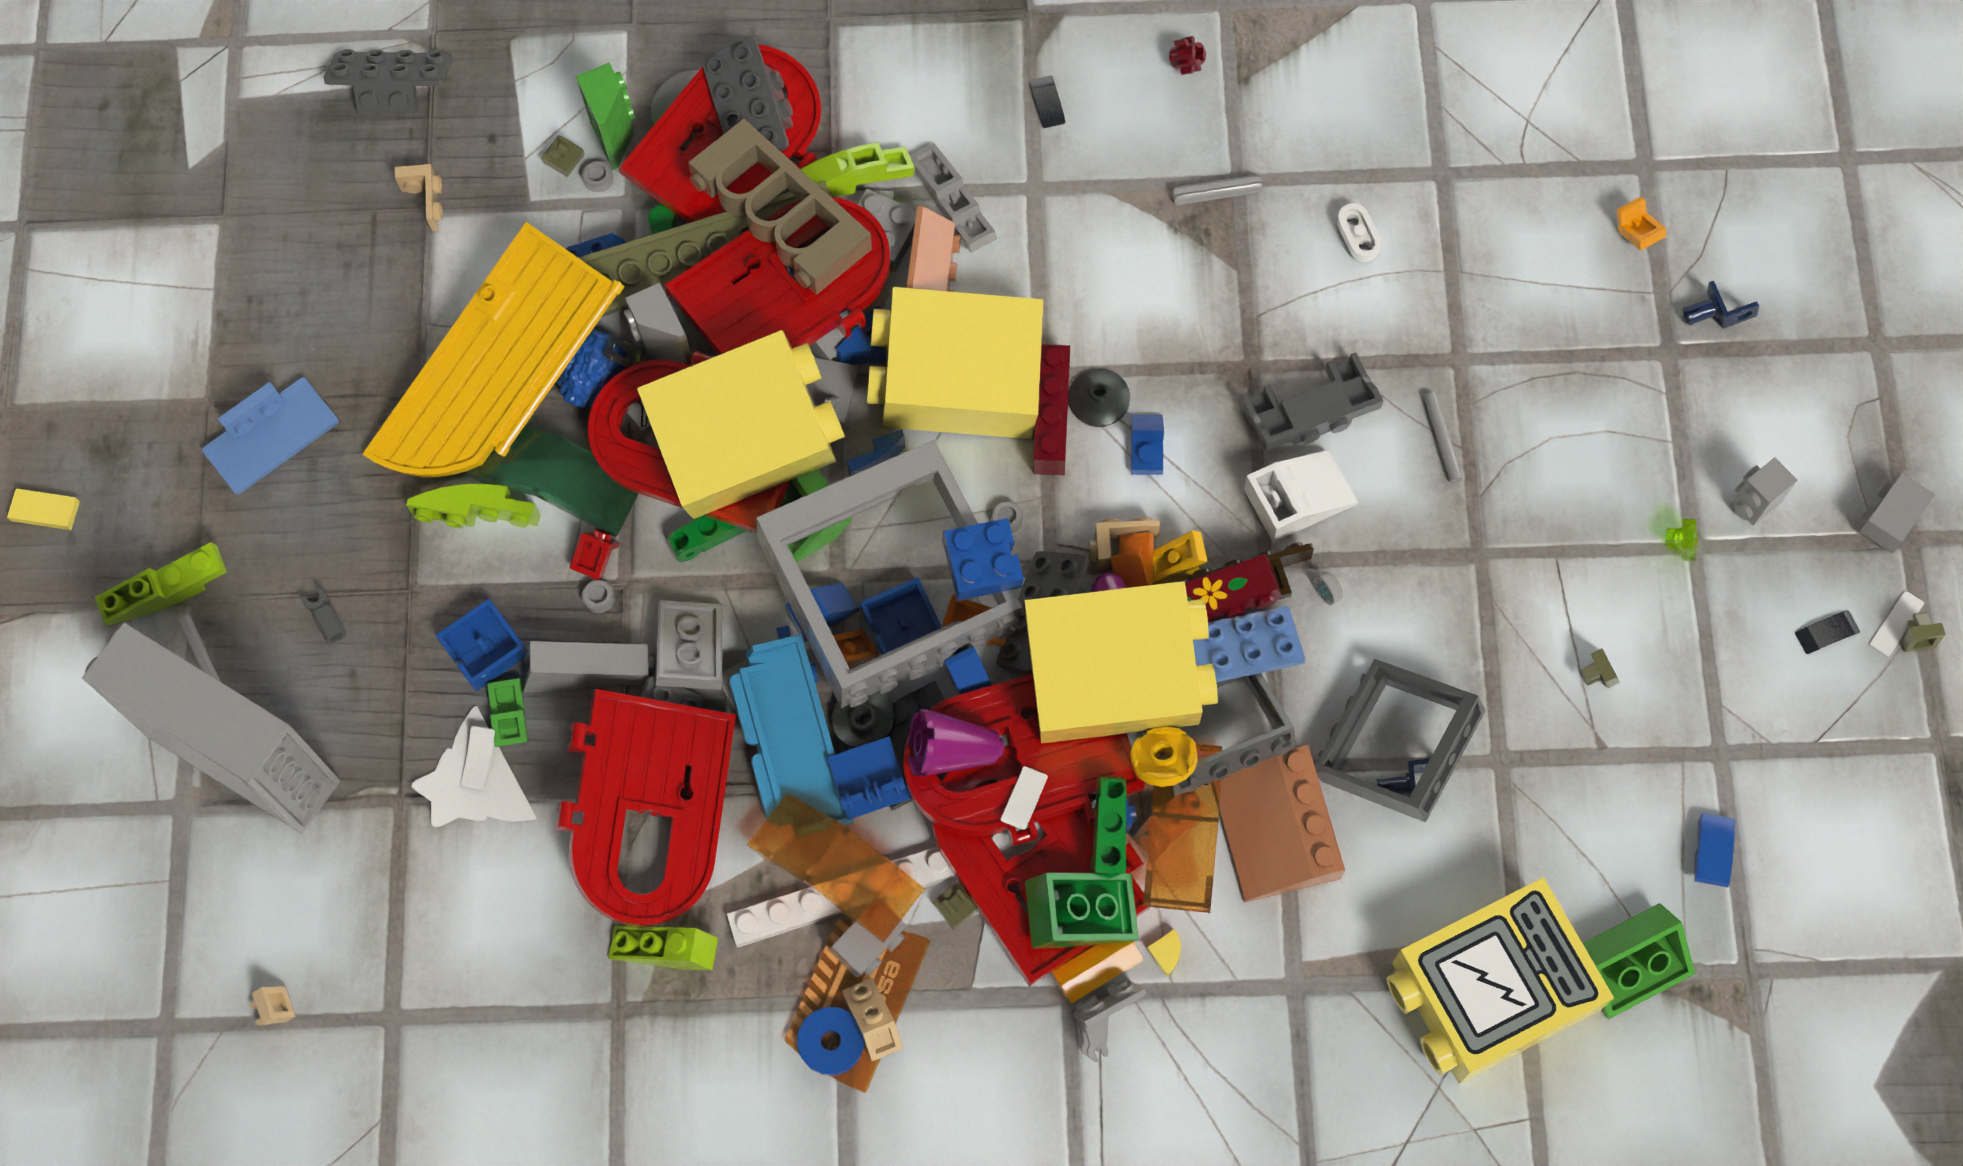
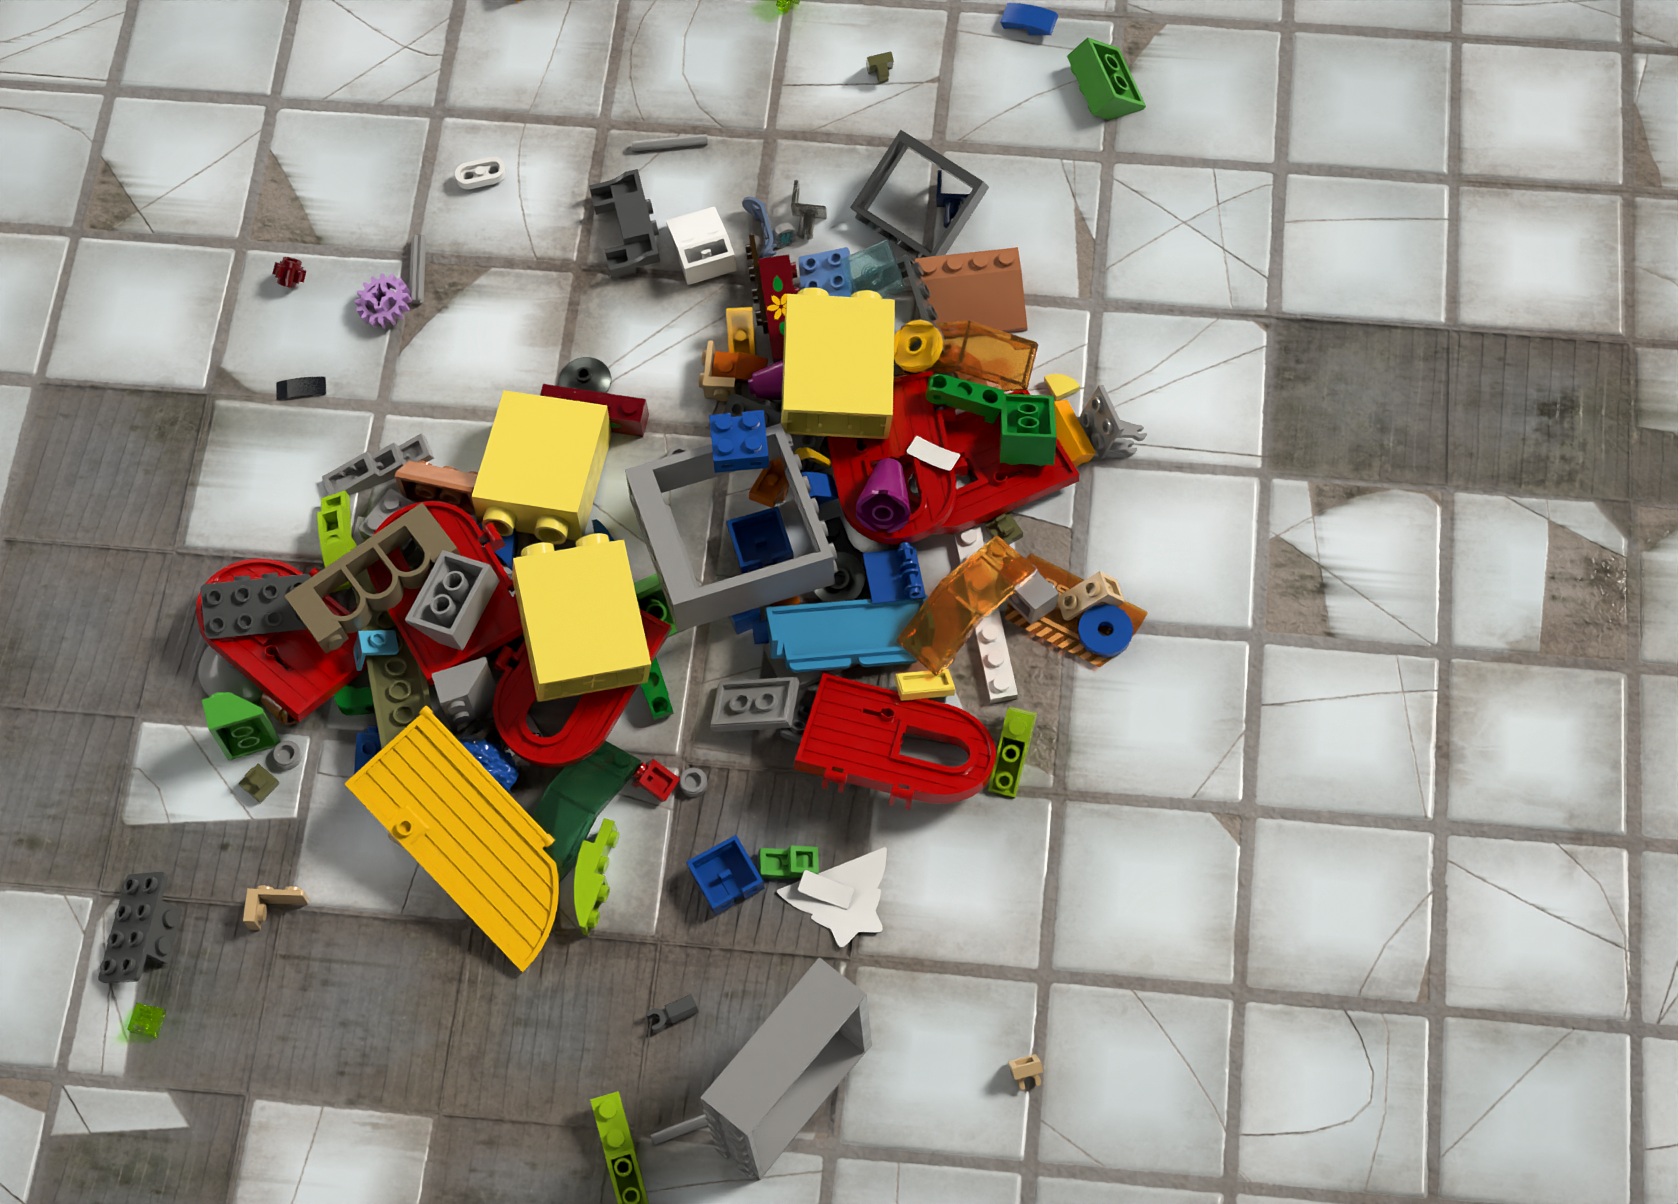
camera: 80 degrees left, 5 degrees down
(267, 432) = (487, 1055): medium blue bracket -> none
(295, 105) = (146, 1020): none -> clear neon green tile
(584, 665) = (759, 792): light grey slope -> none
(710, 228) = (374, 643): none -> medium azure bracket
(734, 833) = (924, 685): none -> light yellow tile
(750, 287) = (453, 599): none -> light grey slope
(1003, 646) = (812, 455): none -> yellow piece
(1147, 444) = (633, 348): blue slope -> none
(1165, 160) = (383, 300): none -> lavender gear
(1262, 691) = (874, 270): none -> clear light blue plate
(1307, 573) = (759, 212): none -> sand blue piece
(1362, 611) = (806, 212): none -> clear smoke bracket
(1498, 982) = (1115, 162): brick -> none

